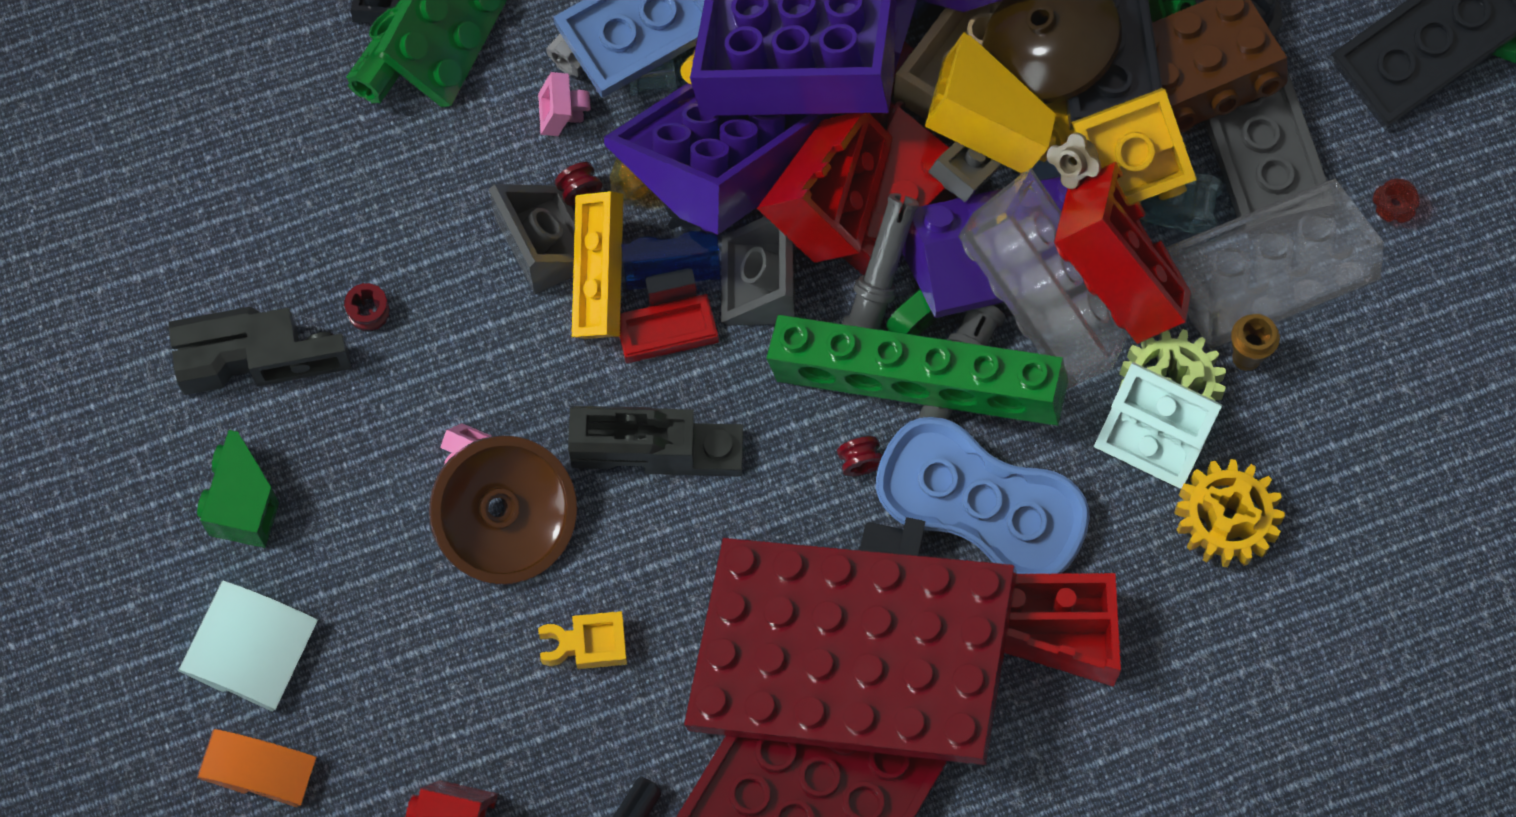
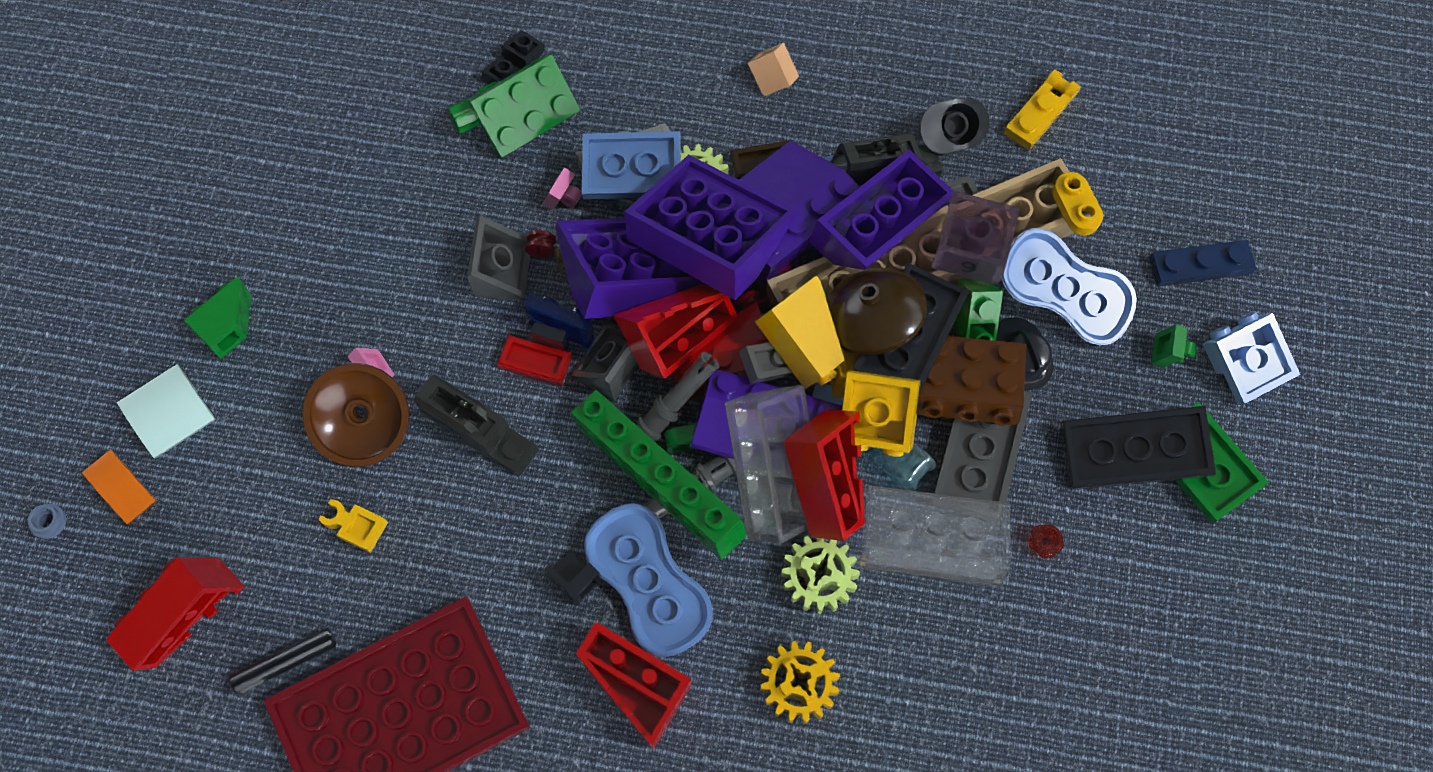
camera: 30 degrees right, 0 degrees up
(250, 342) = (289, 233): pearl dark grey plate -> none
(358, 295) = (372, 259): dark red bush -> none
(597, 265) = (509, 304): yellow plate -> none
(853, 650) = (498, 630): dark red plate -> none
(860, 456) = (593, 506): dark red bush -> none
(1085, 155) = (834, 395): dark tan plate -> none
(1157, 425) = (786, 598): light aqua slope -> none
(1253, 340) = (889, 571): pearl gold cone -> none

